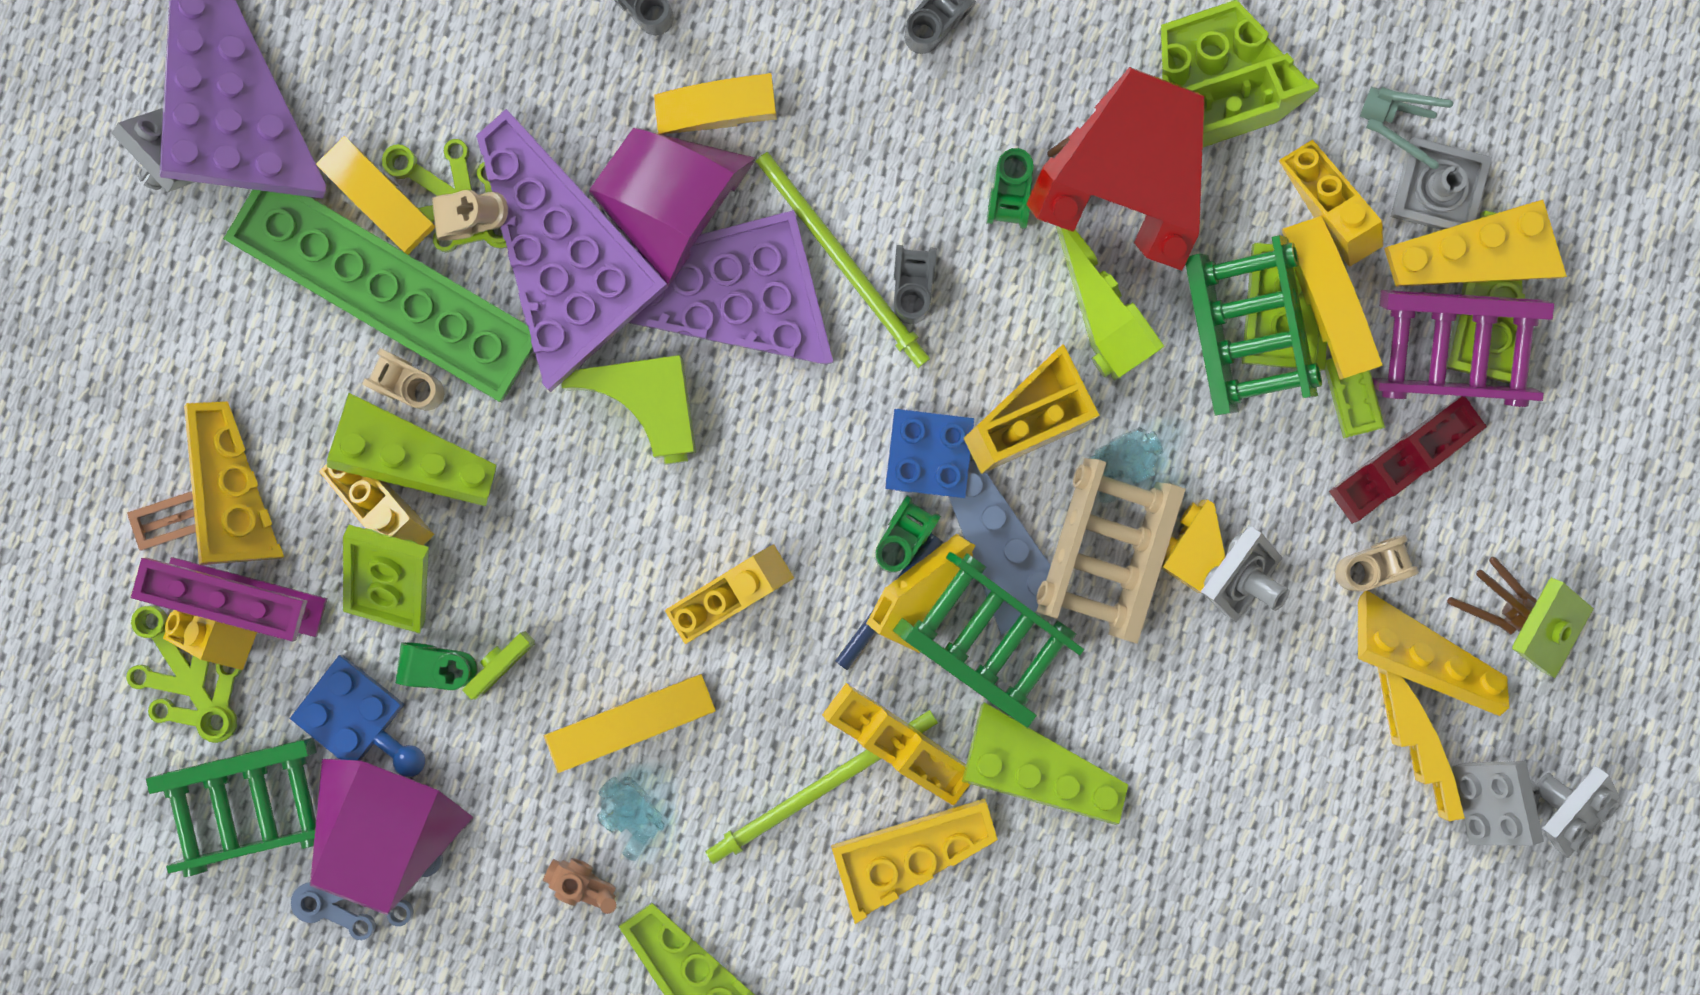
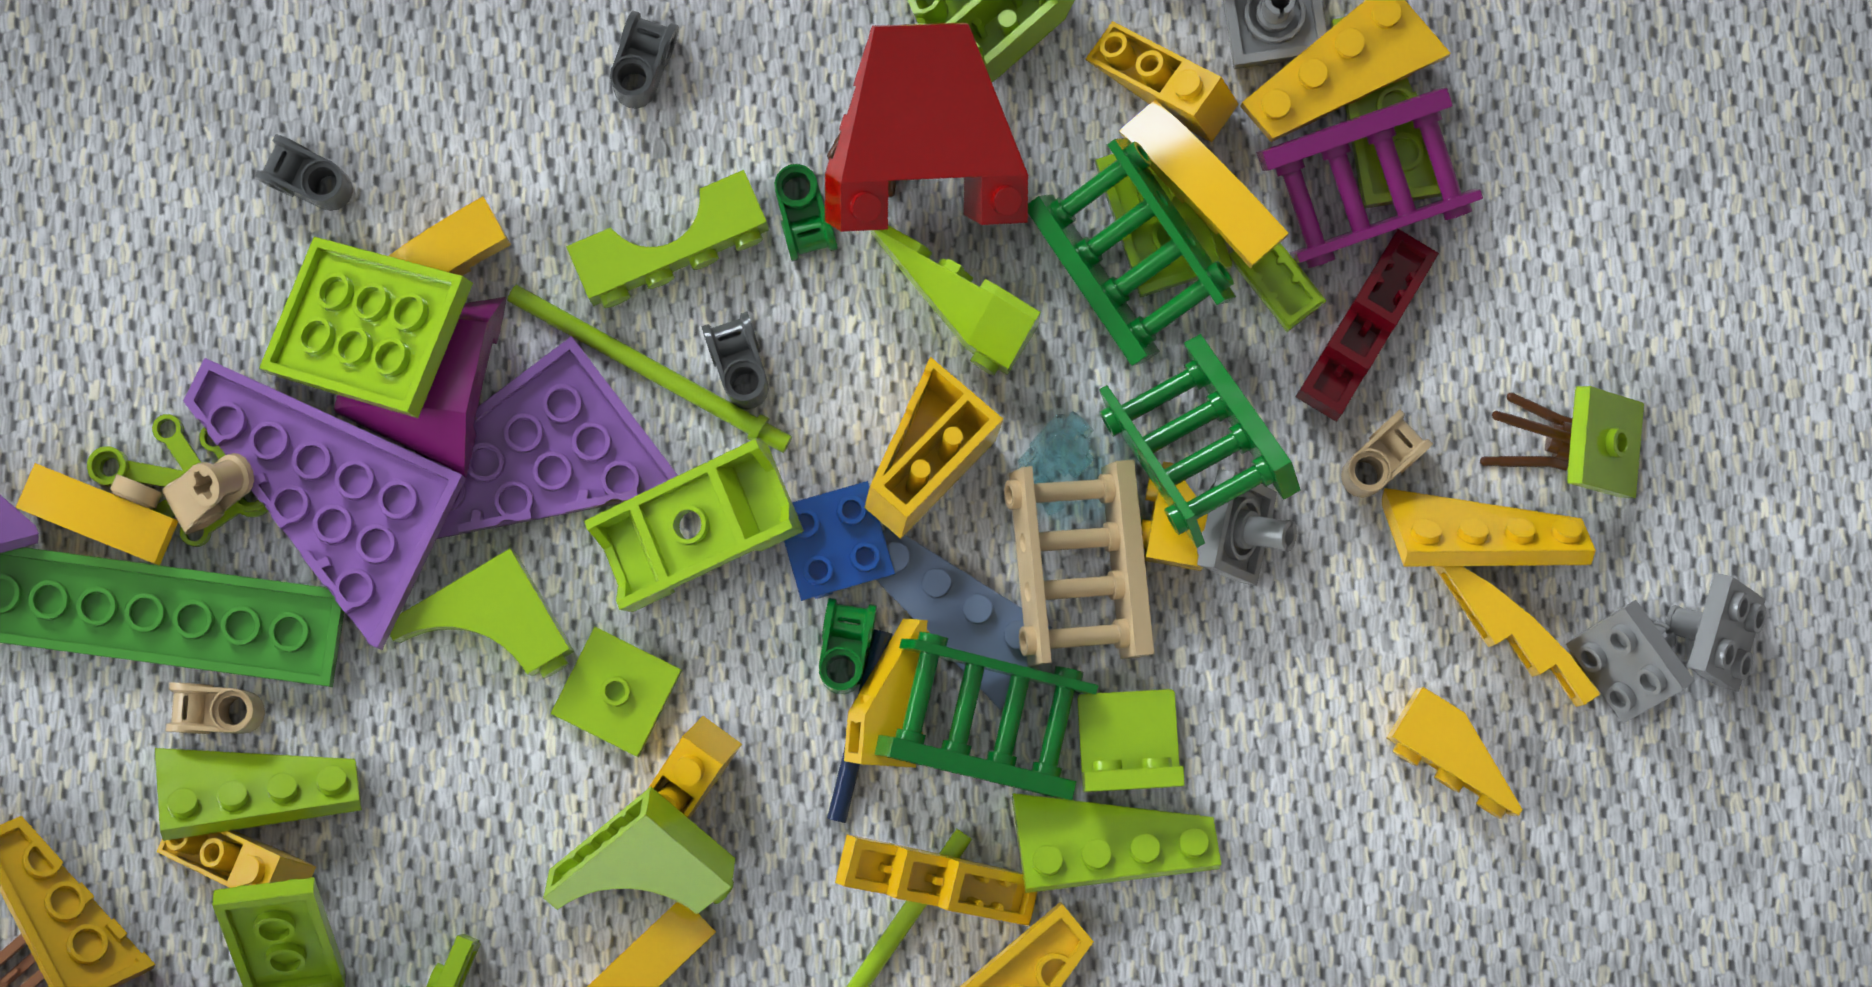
camera: 25 degrees left, 5 degrees down
(411, 191) = (135, 492): none -> tan tile
(640, 137) = (366, 326): none -> lime plate
(688, 628) = (648, 850): none -> lime arch
(715, 497) = (616, 691): none -> lime plate
(868, 399) = (739, 508): none -> lime piece
(950, 168) = (614, 266): none -> lime arch
(1088, 701) = (1129, 740): none -> lime bracket
(1274, 474) = (1224, 402): none -> green fence
(1332, 805) = (1447, 741): none -> yellow slope

